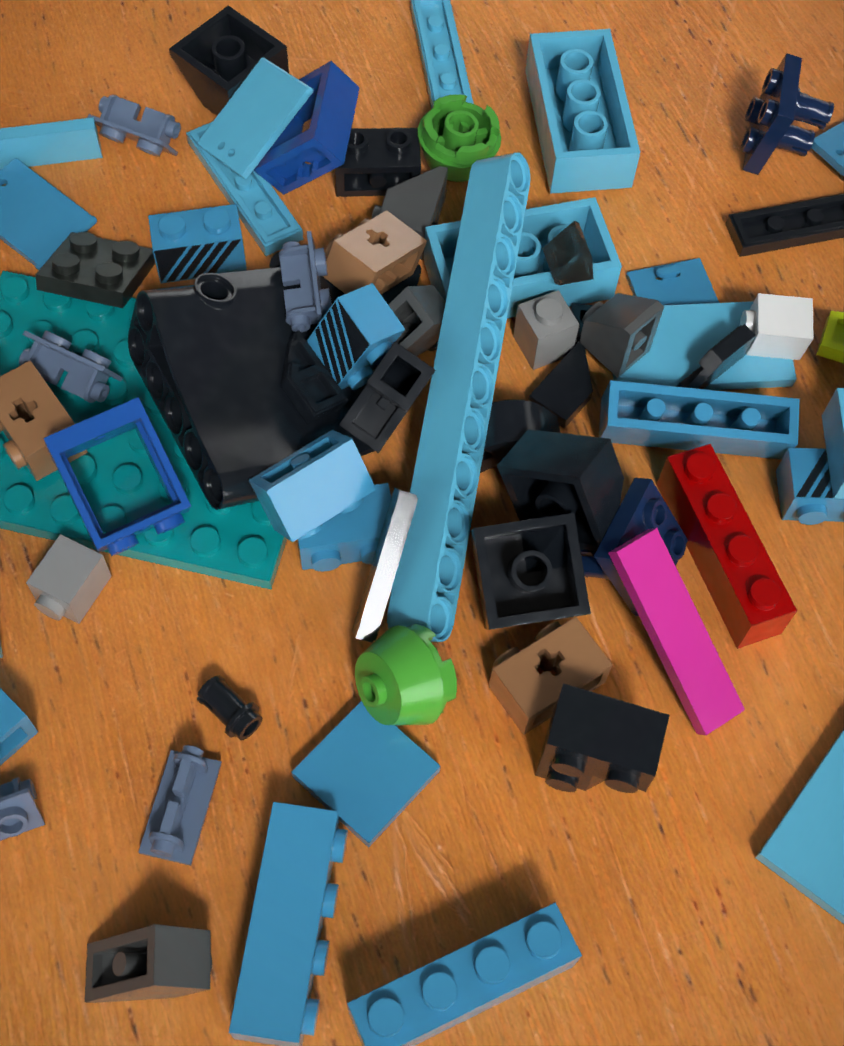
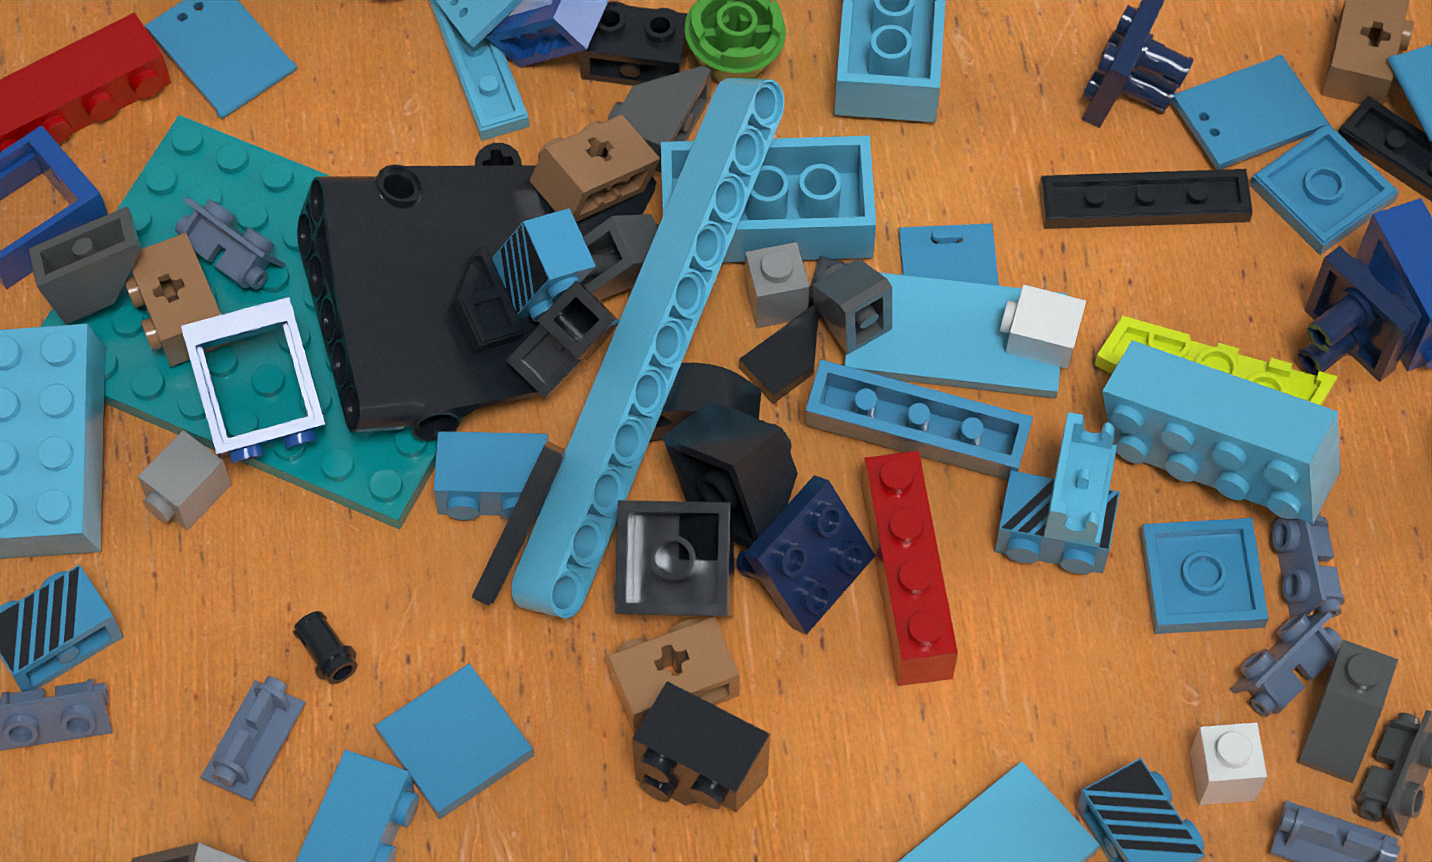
camera: 15 degrees right, 0 degrees up
(95, 269) = (282, 130): pearl dark grey plate -> none
(197, 242) = (402, 117): dark azure brick -> none
(304, 266) = (509, 173): sand blue hinge -> none
(313, 486) = (458, 424): brick -> none
(405, 677) = (511, 648): bright green cone -> none
(569, 256) = (813, 206): clear smoke slope -> none
(676, 631) = (818, 652): dark pink tile -> none
(720, 358) = (963, 355): black tile -> none

